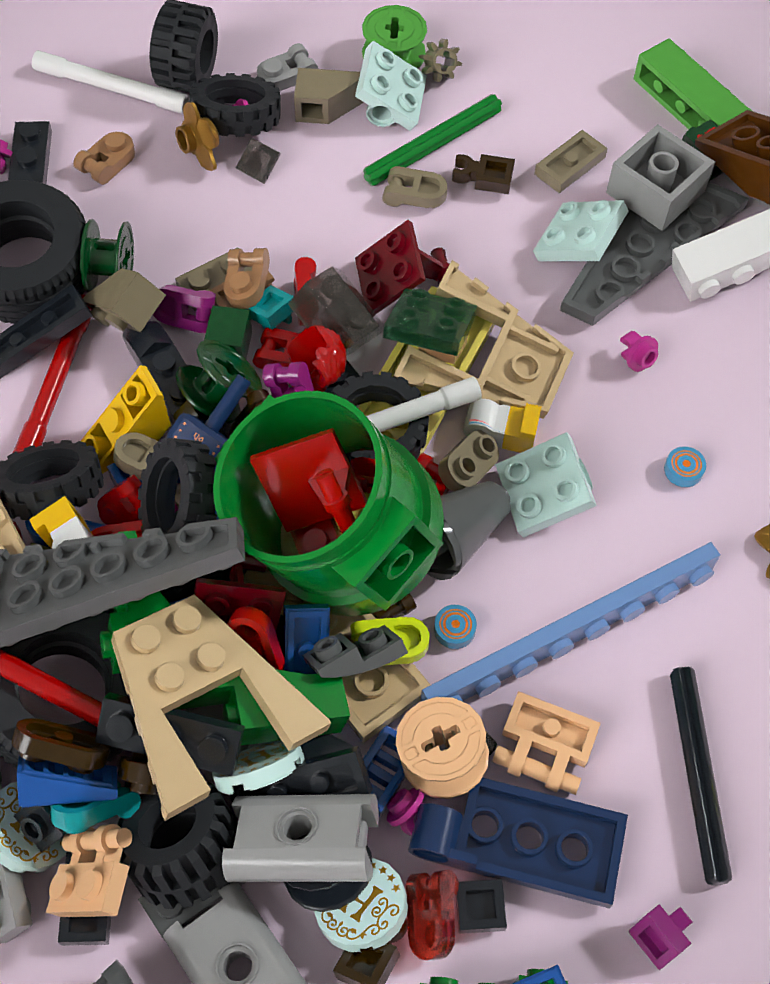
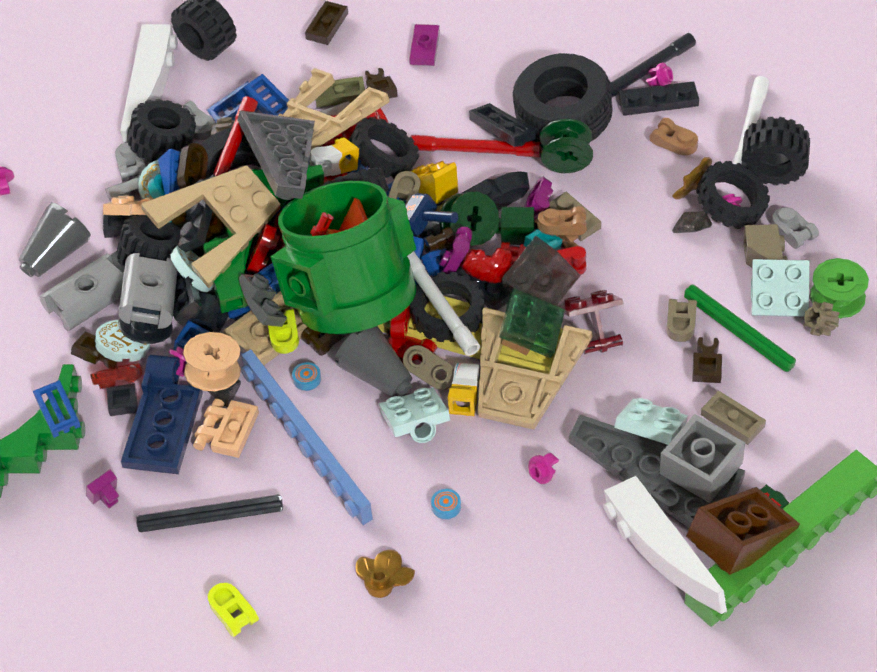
camera: 90 degrees right, 10 degrees down
(124, 300) = (523, 158): dark tan slope -> none

